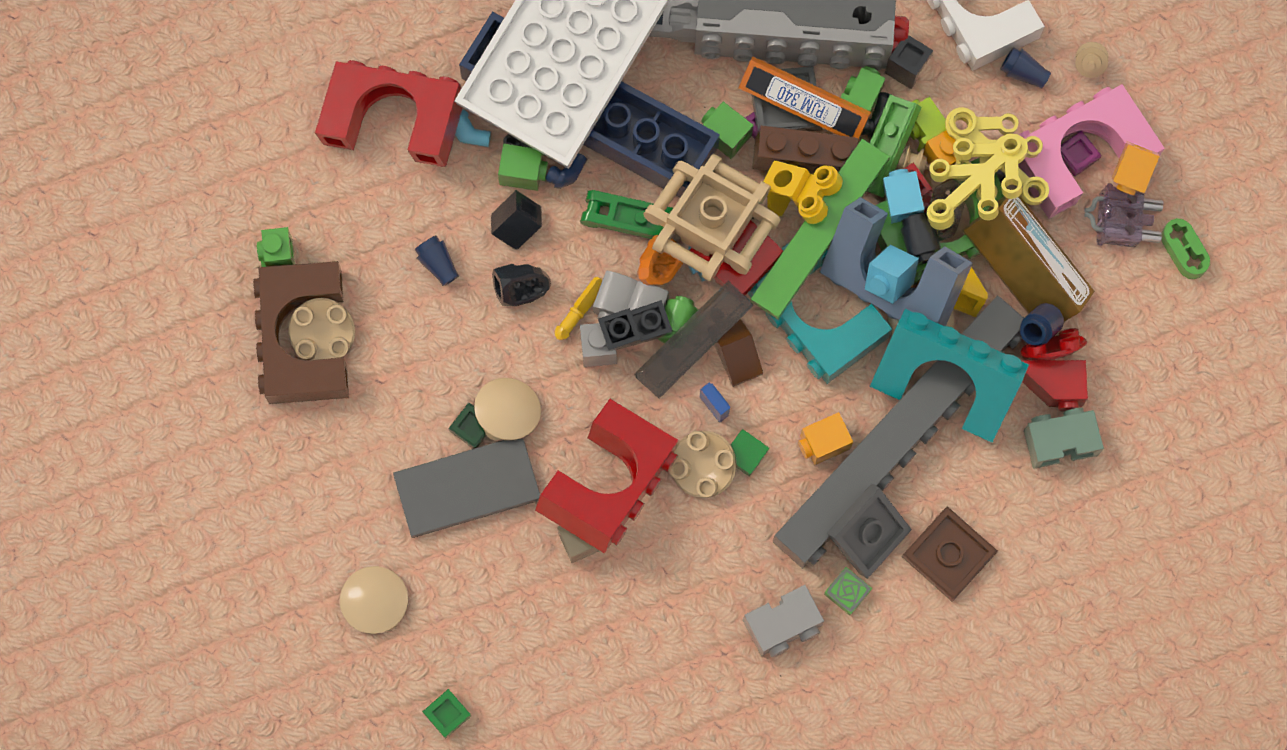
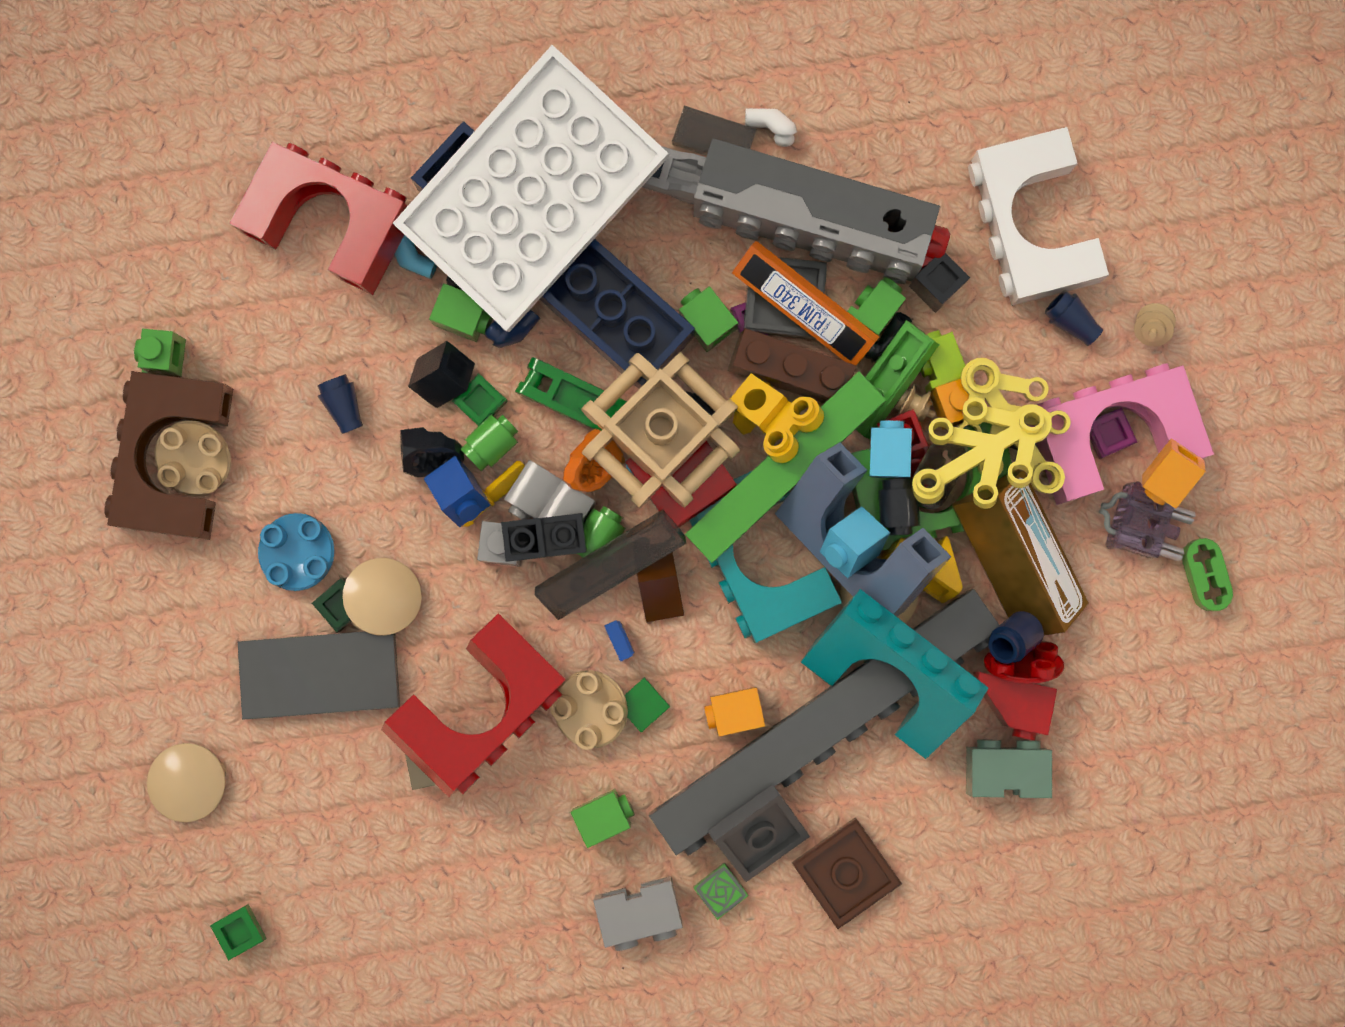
camera: 20 degrees right, 10 degrees up
(425, 389) = (295, 551): none -> dark azure dish
(552, 236) = (480, 400): none -> green tile
(552, 308) = (457, 491): none -> blue brick
(569, 265) = (490, 442): none -> bright green brick
(735, 549) = (603, 817): none -> bright green brick

